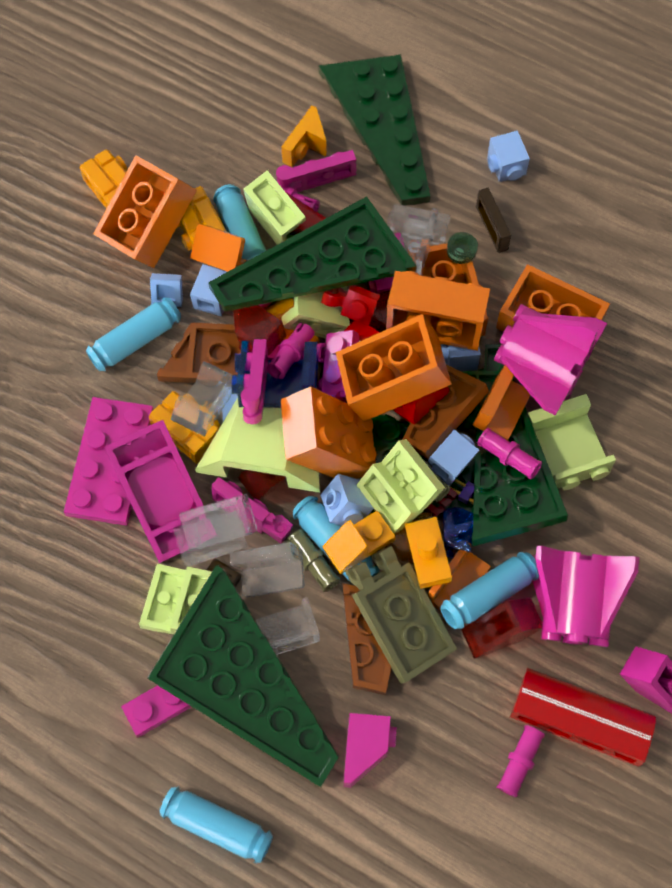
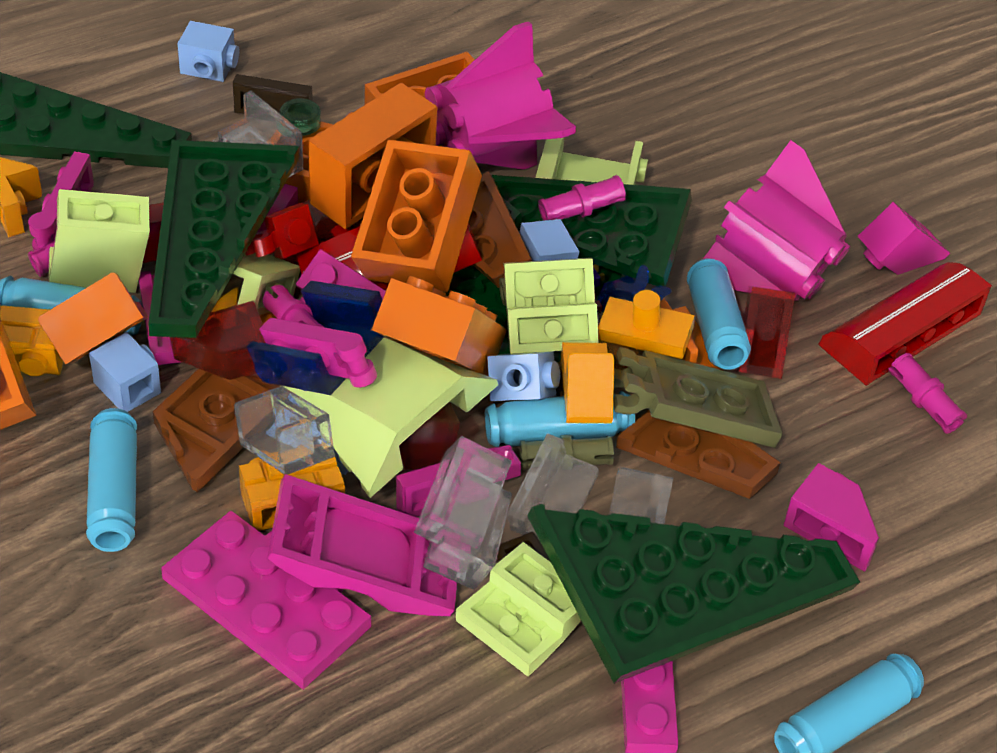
camera: 65 degrees left, 20 degrees down
(166, 286) = (75, 412): light blue tile -> none
(502, 405) = (516, 183): orange panel -> none

